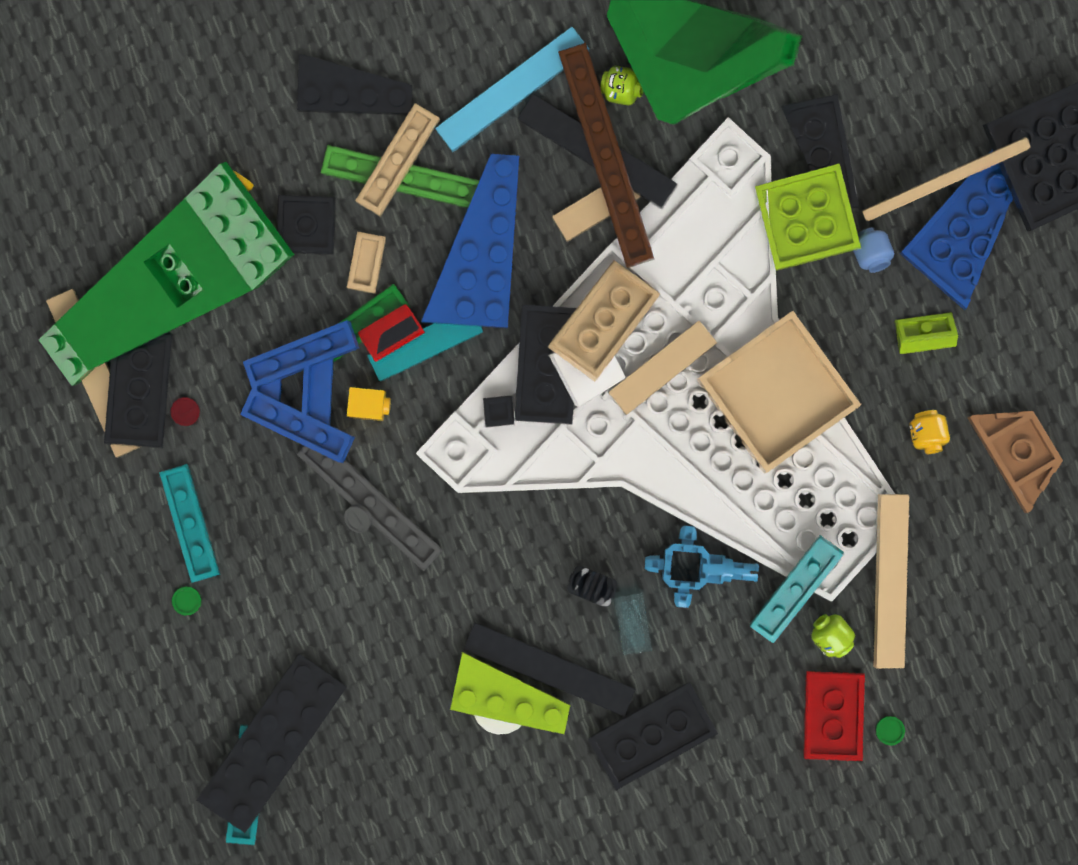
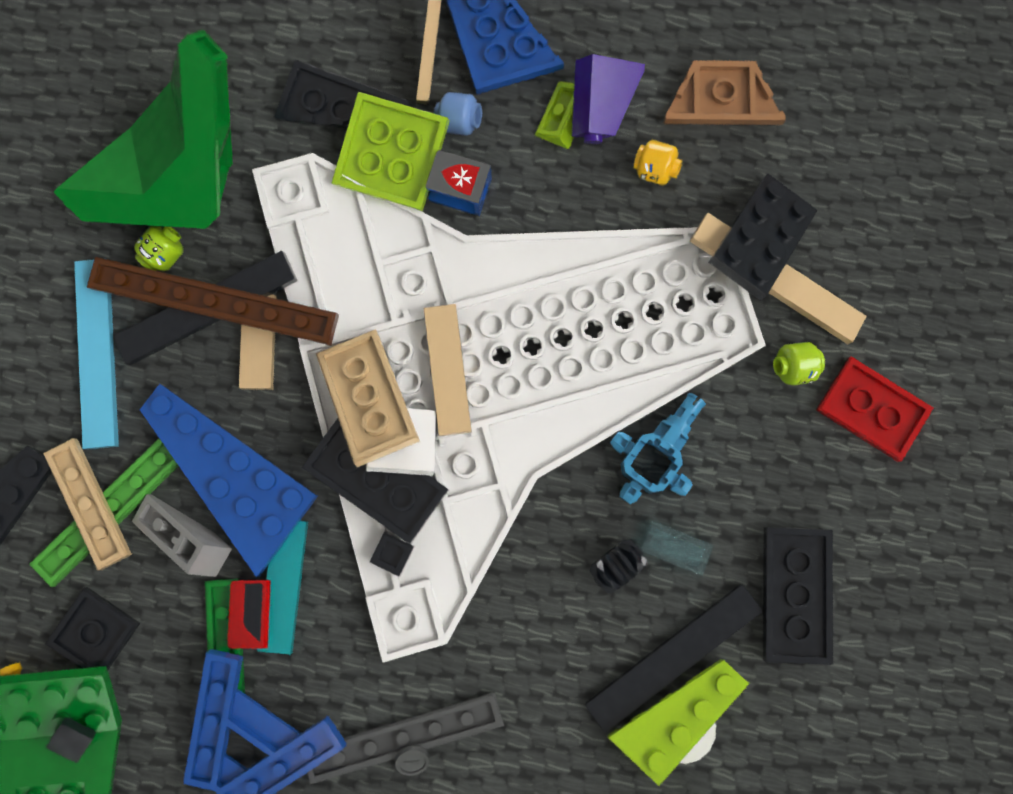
camera: 60 degrees left, 5 degrees down
(228, 262) = (71, 739): none -> black tile
(366, 262) = (167, 595): tan tile -> none
(368, 404) = (304, 681): yellow brick -> none
(415, 245) = (181, 538): none -> light grey slope
(779, 392) = (538, 274): tan piece -> none
(796, 589) = (736, 369): teal plate -> none
(816, 285) = (458, 182): none -> piece
(890, 730) = (917, 365): green piece -> none
(917, 549) = (763, 237): none -> black plate
(956, 356) = (602, 95): none -> dark purple slope

